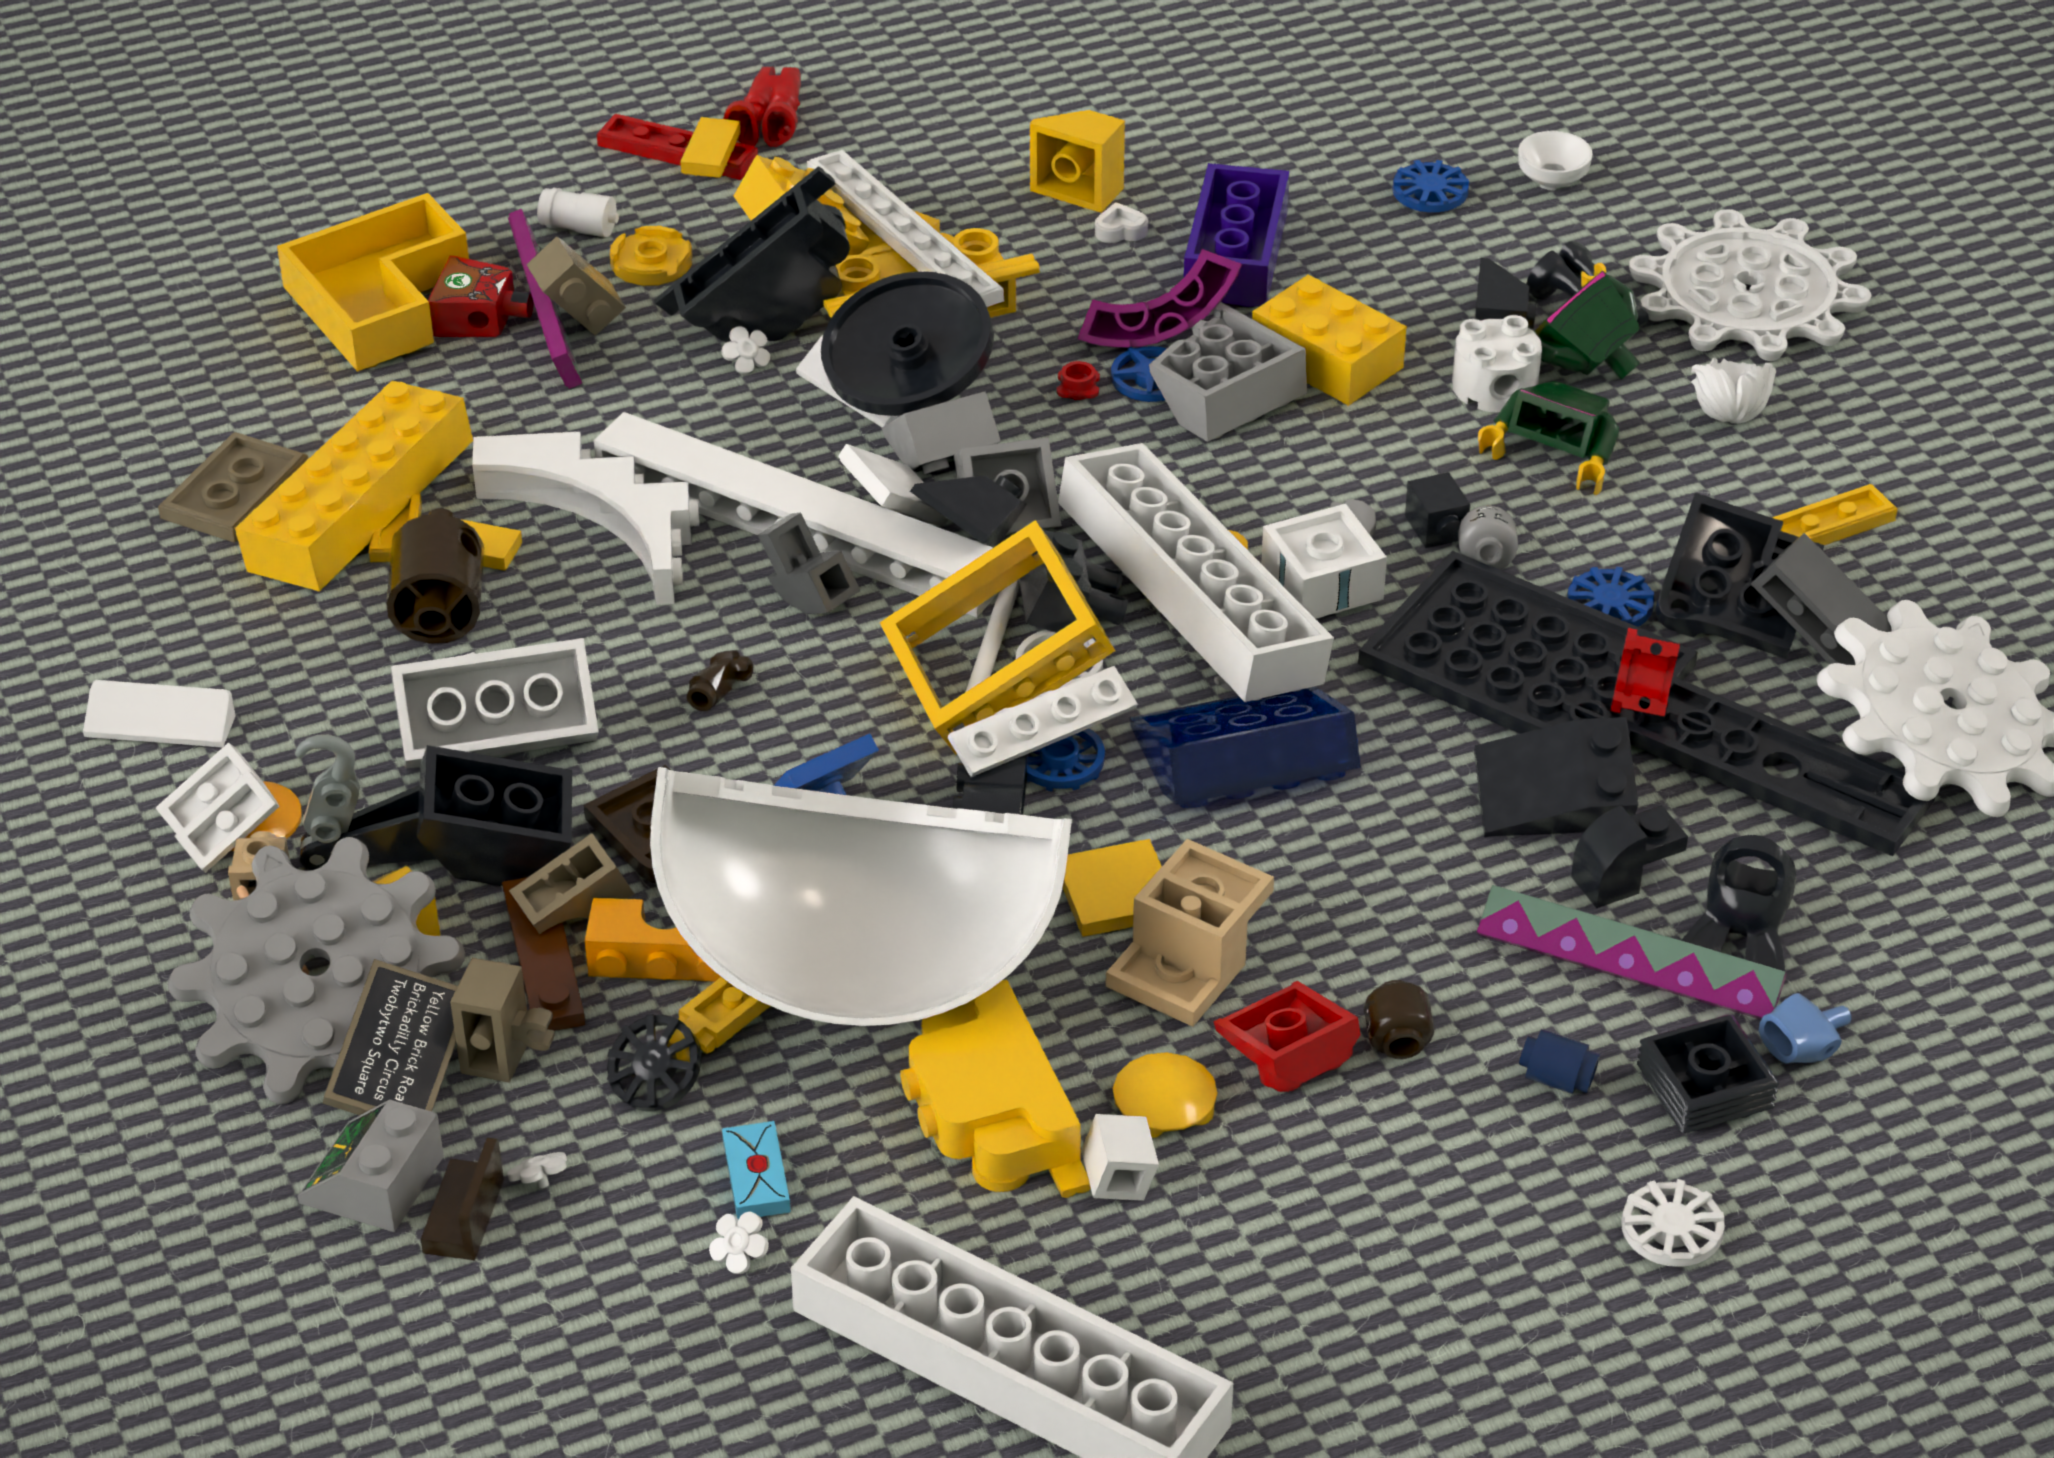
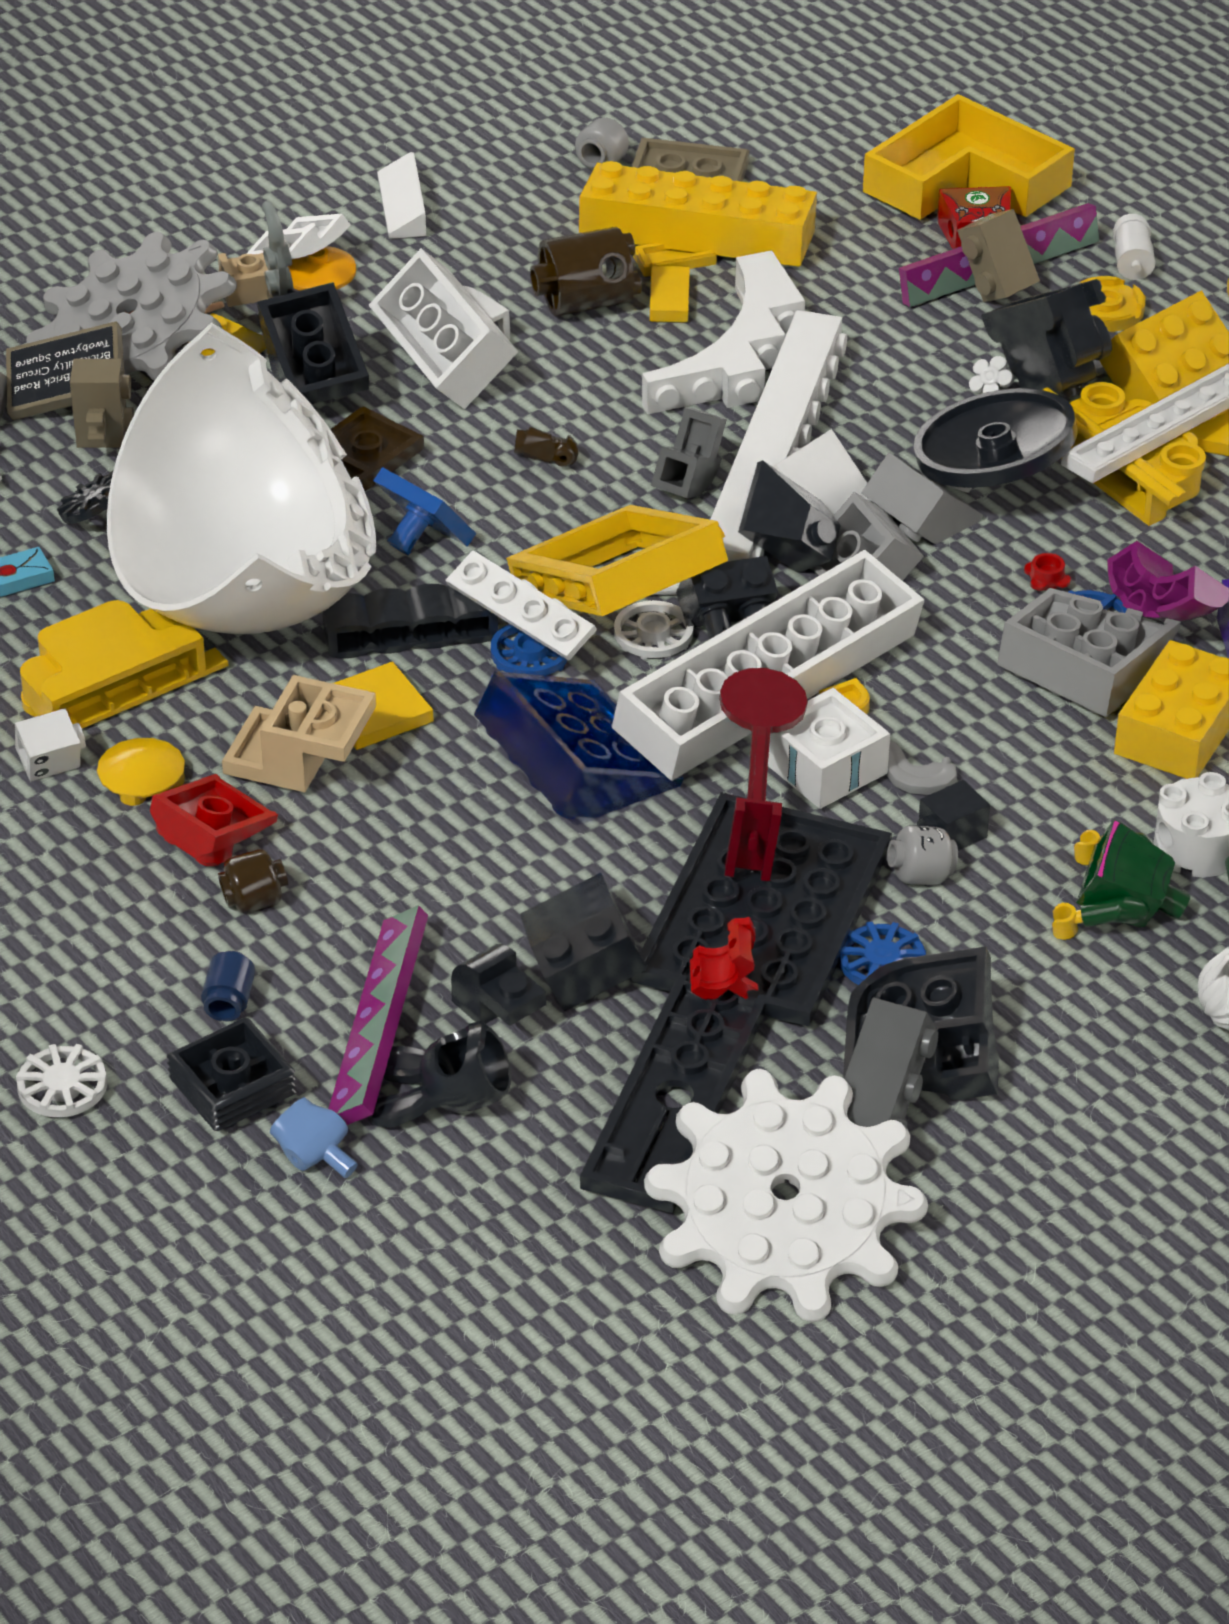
camera: 75 degrees right, 0 degrees up
(163, 534) = (601, 142): none -> light grey head
(1299, 569) = (764, 704): none -> dark red piece
(1840, 515) = (1069, 1092): yellow tile -> none

